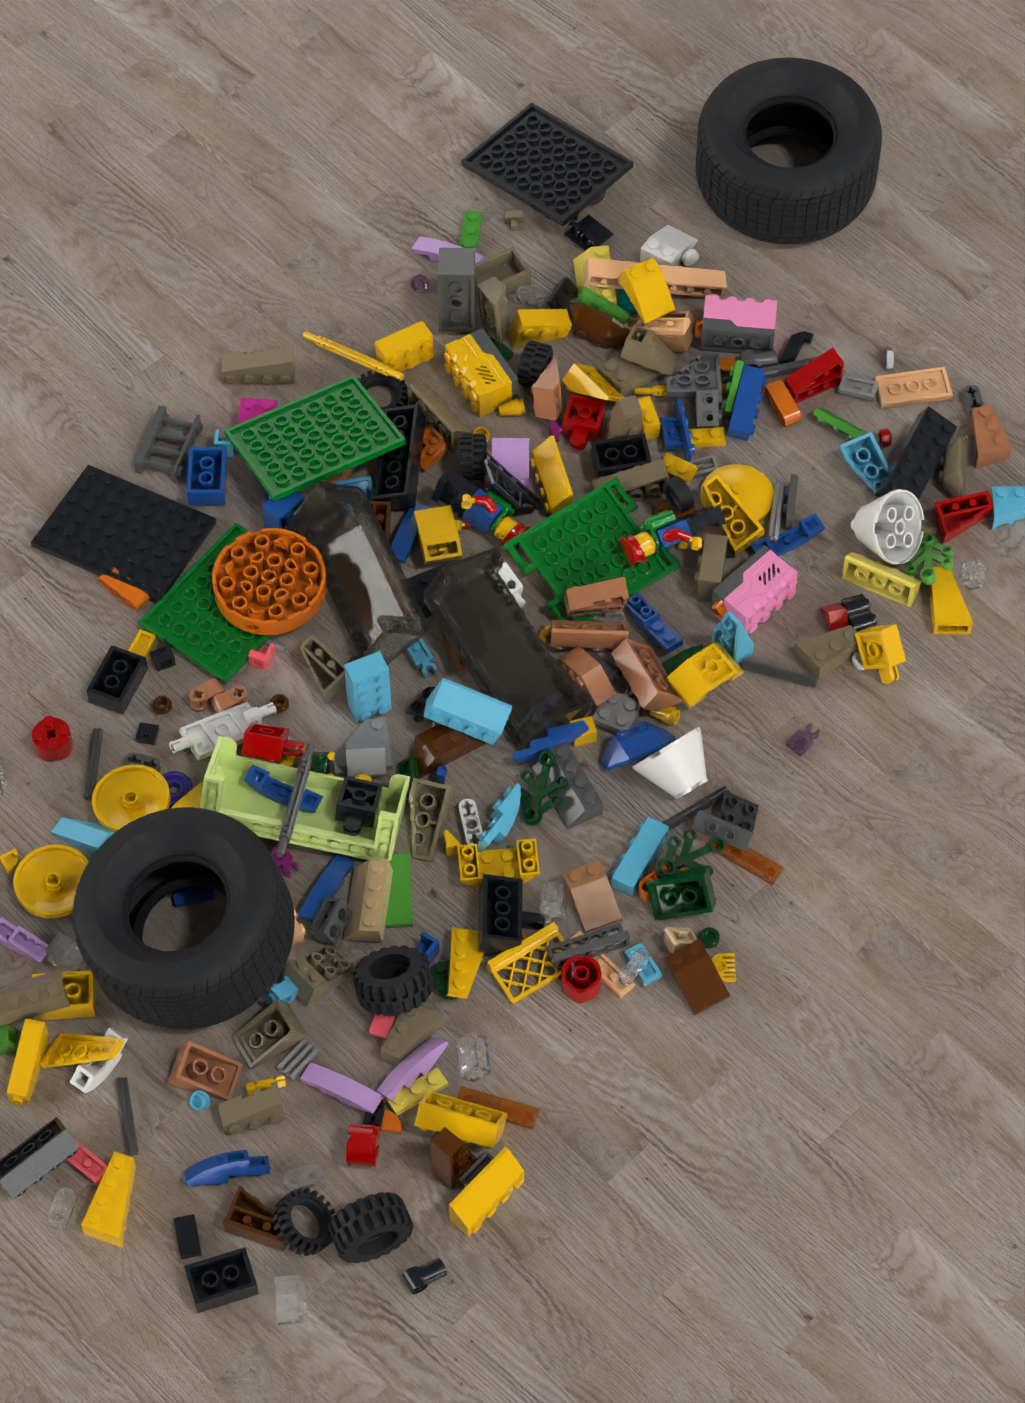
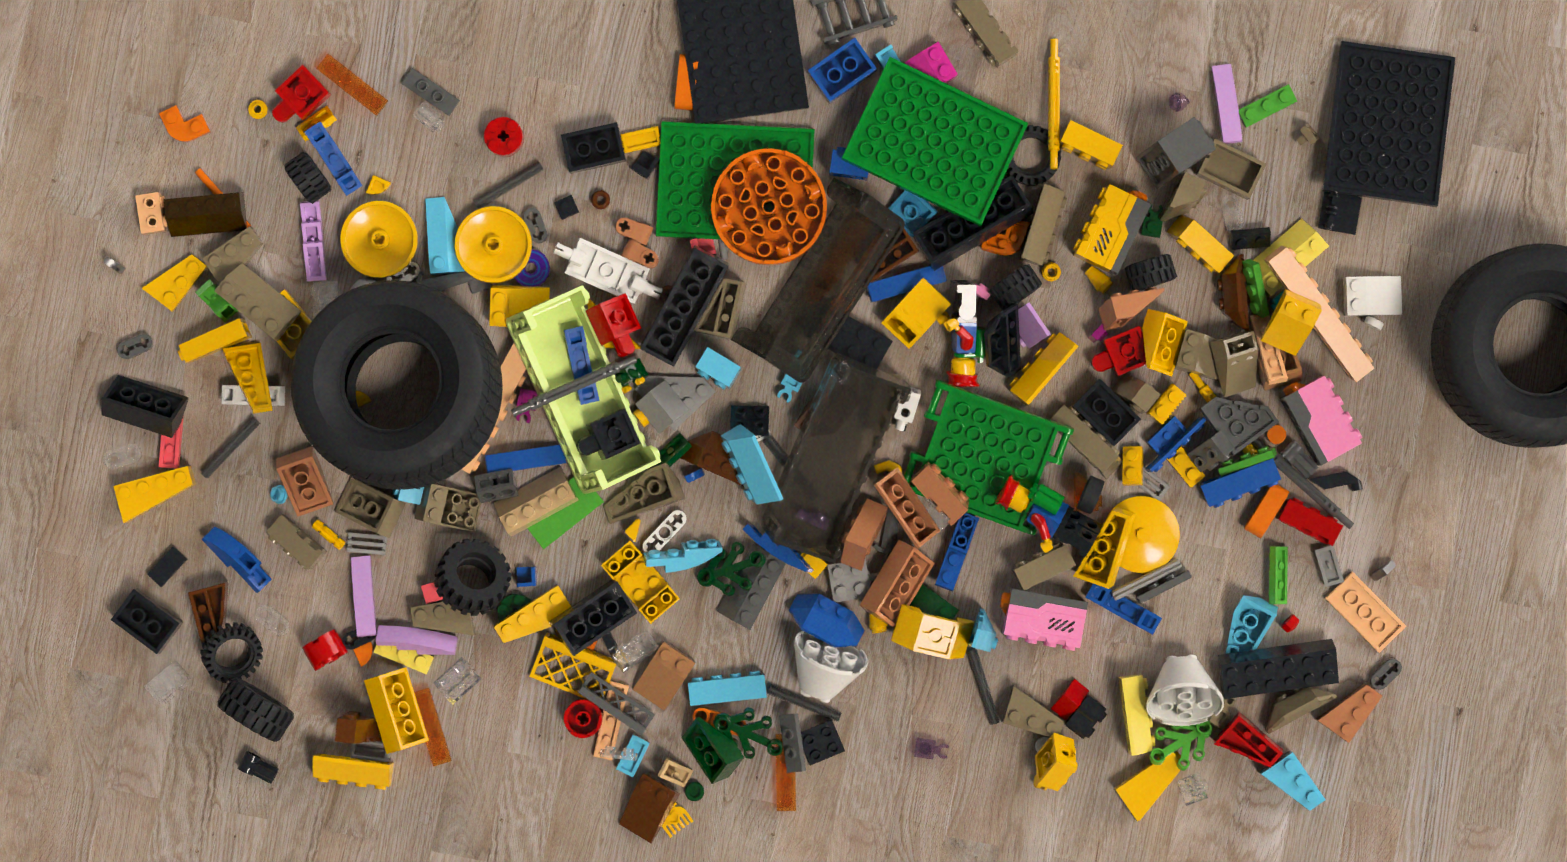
camera: 55 degrees right, 30 degrees up
(297, 687) = (684, 305): none -> black brick

